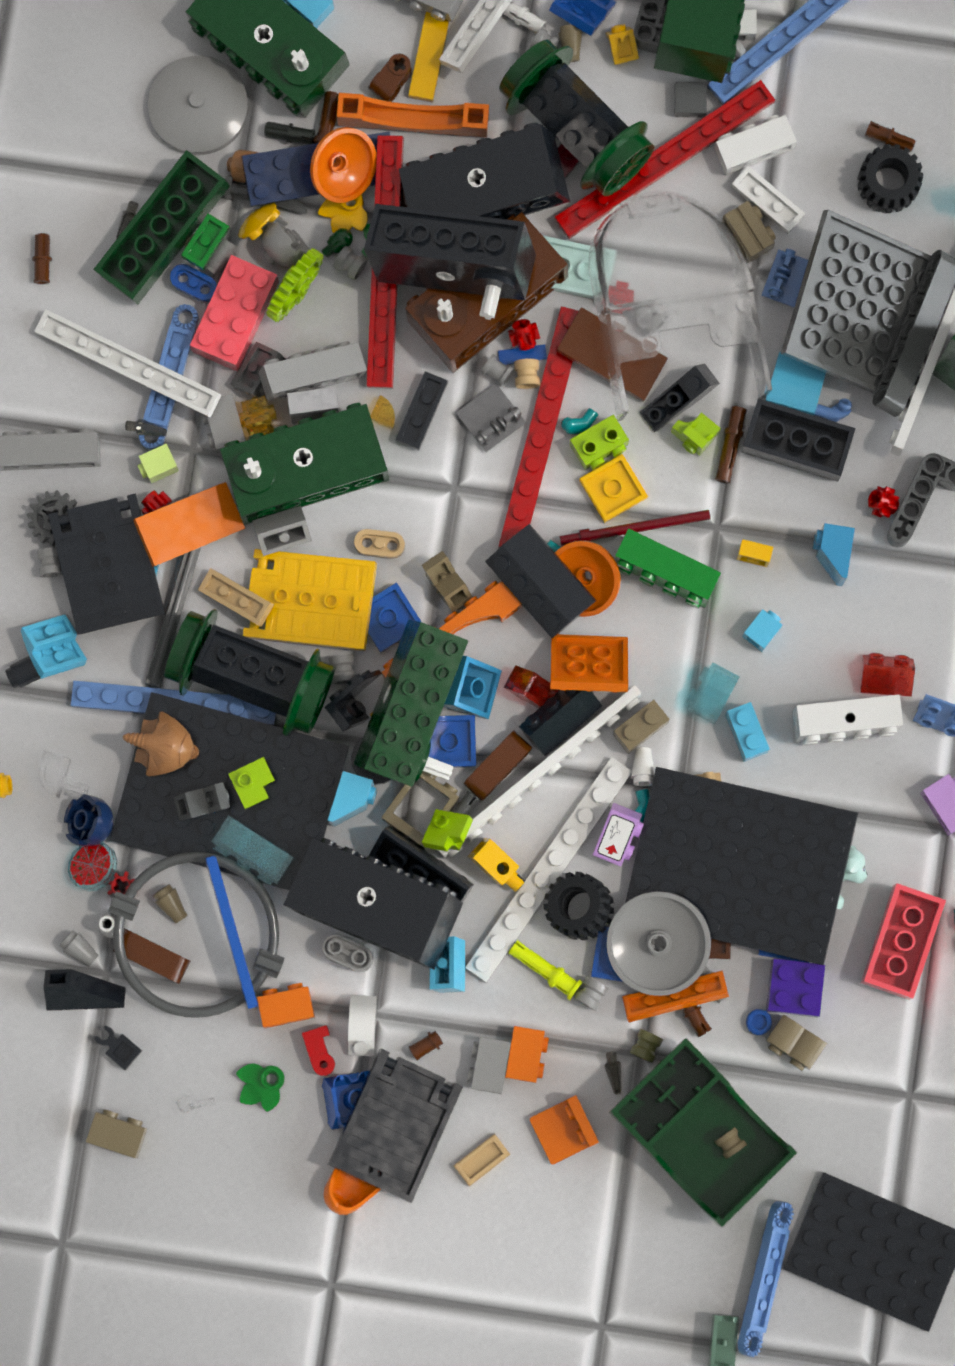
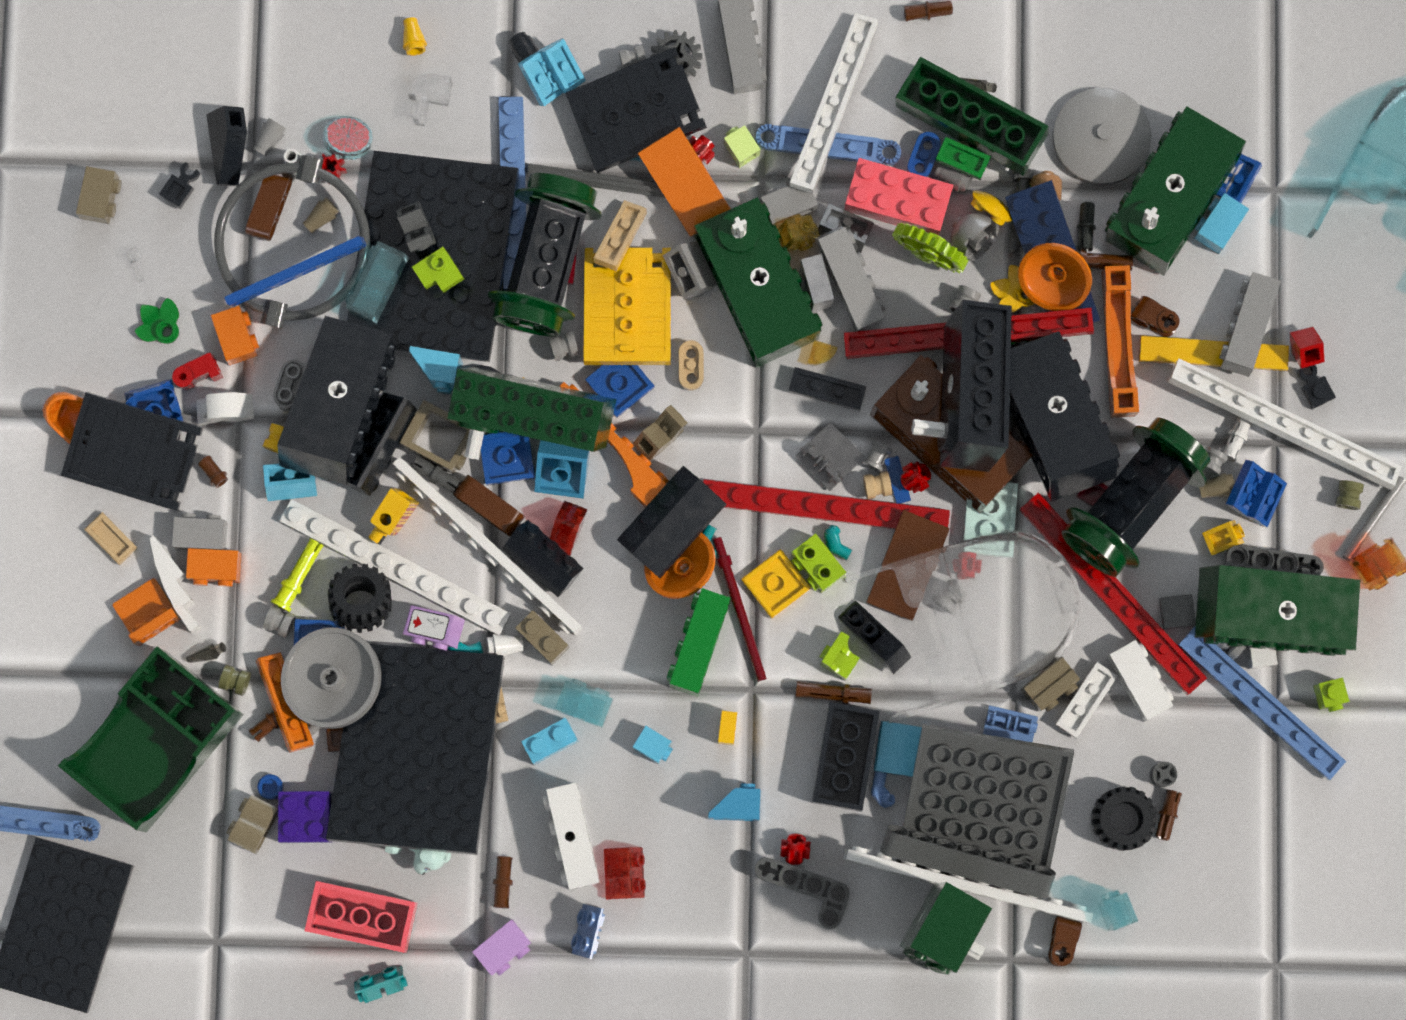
camera: 80 degrees right, 0 degrees up
(88, 820) = (388, 128): dark blue cylinder -> none
(144, 427) = (773, 127): clear smoke bar -> none
(164, 745) = (462, 186): medium nougat piece -> none
(337, 242) = (983, 286): dark green cylinder -> none
(344, 707) = (525, 353): black bracket -> none
(401, 973) = (273, 439): none -> yellow wheel
(447, 830) = (413, 460): lime brick -> none
(530, 1100) = (171, 576): none -> white slope
(589, 663) = (596, 578): orange plate -> none
(730, 1143) = (146, 770): dark tan wheel -> none
(853, 131) = (1167, 772): none -> dark grey wheel
(883, 797) = (502, 882): none -> reddish brown pin

